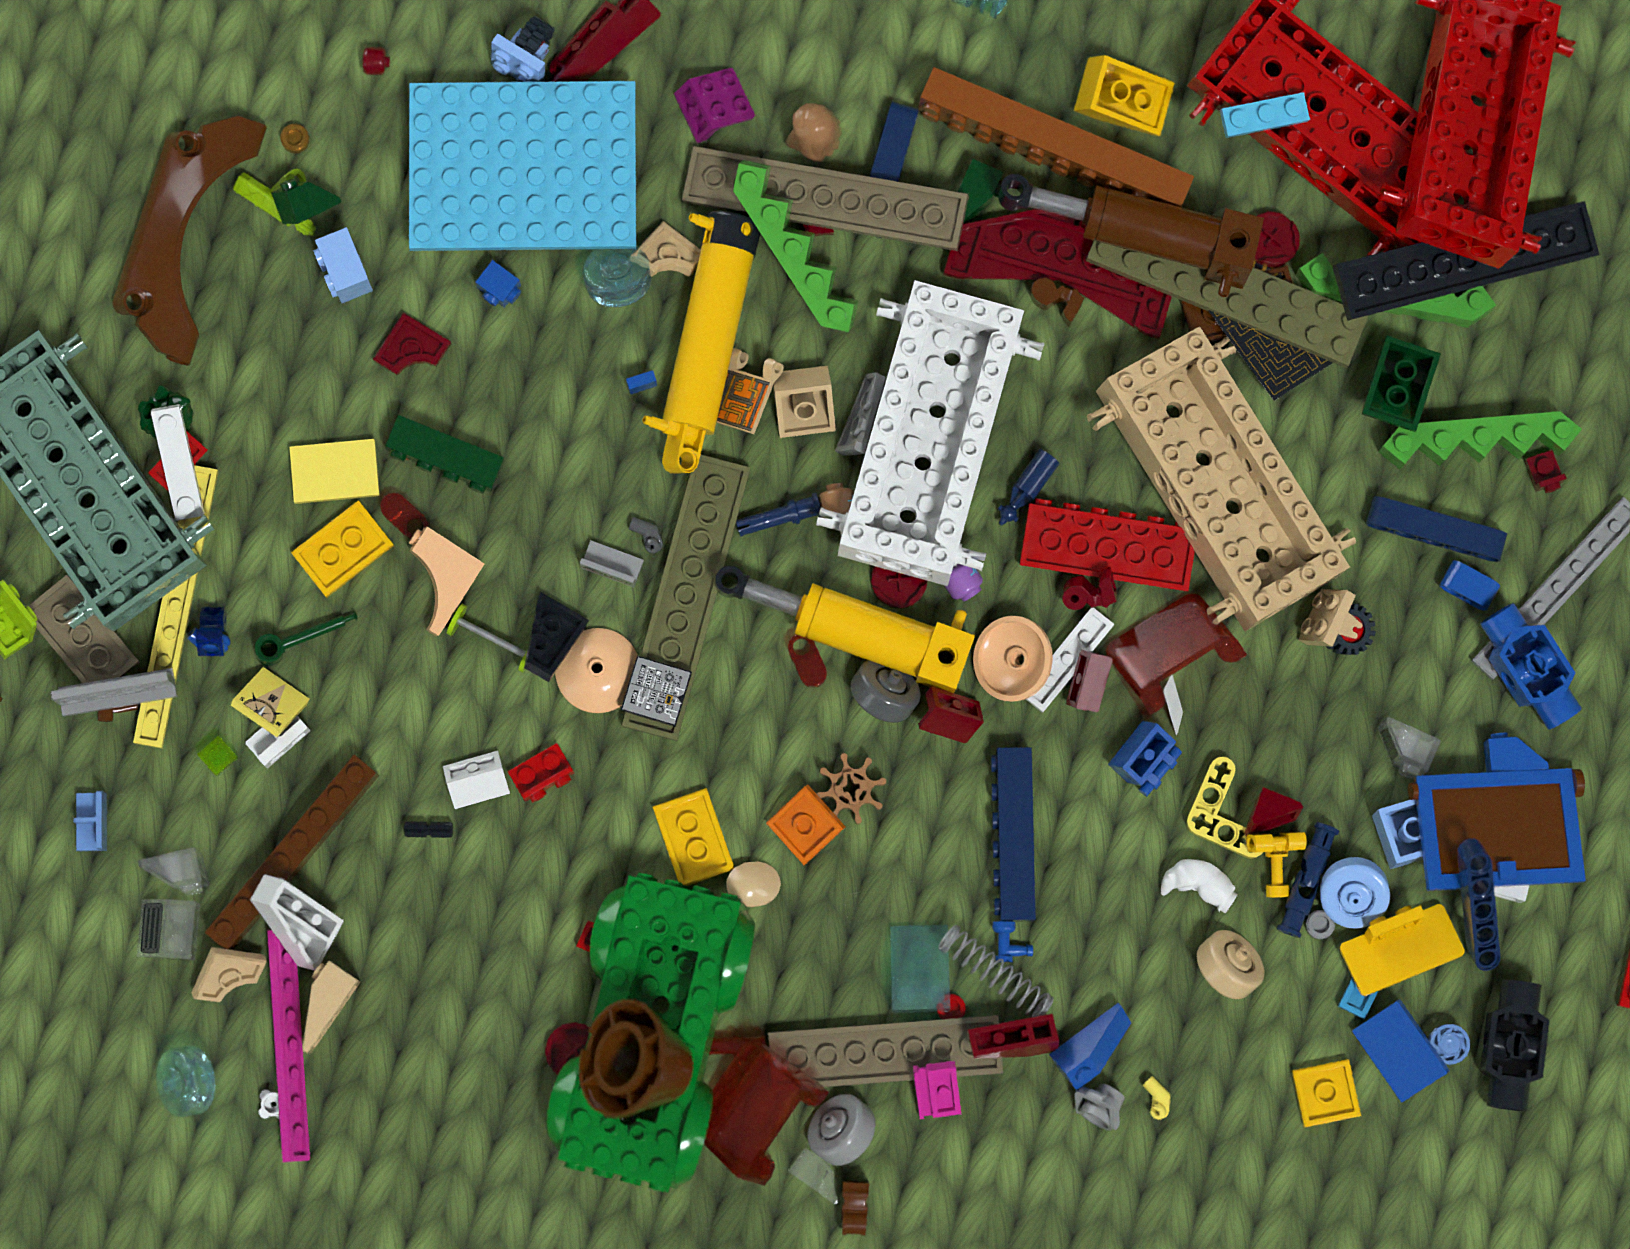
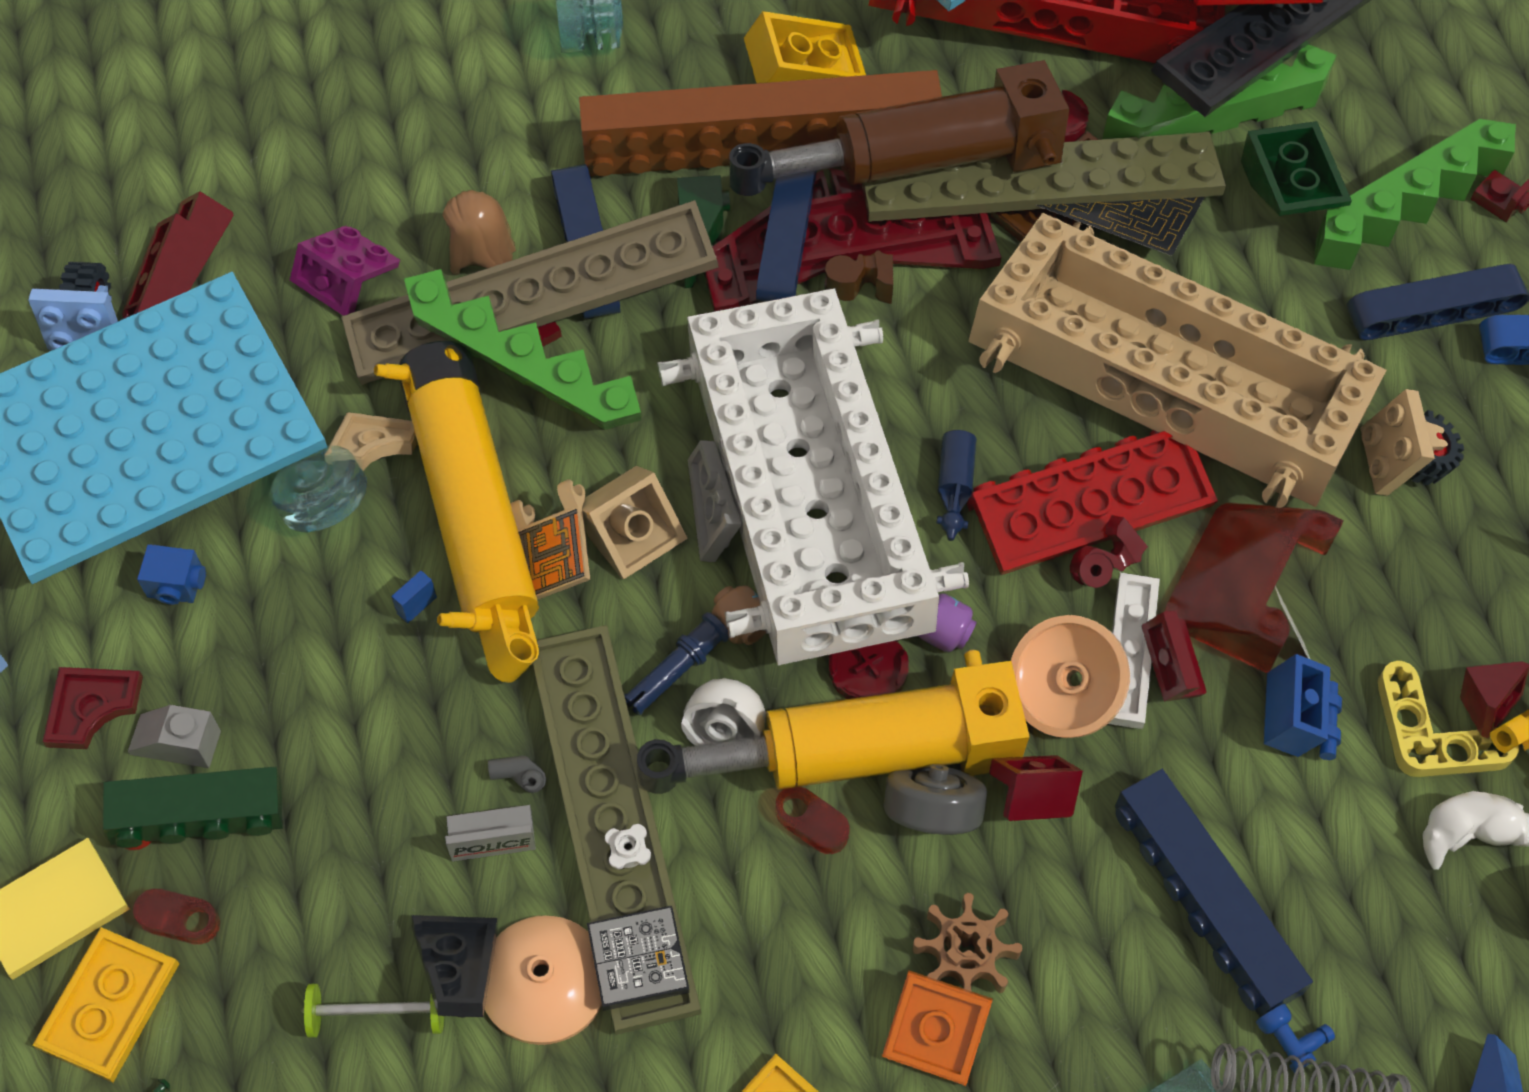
camera: 25 degrees left, 20 degrees down
(450, 571) = (270, 949): light nougat arch -> none
(452, 399) = (176, 736): none -> light grey slope
(689, 628) = (623, 858): none -> white plate
(789, 567) = (723, 712): none -> white cylinder
(1019, 246) = (785, 236): none -> dark blue beam

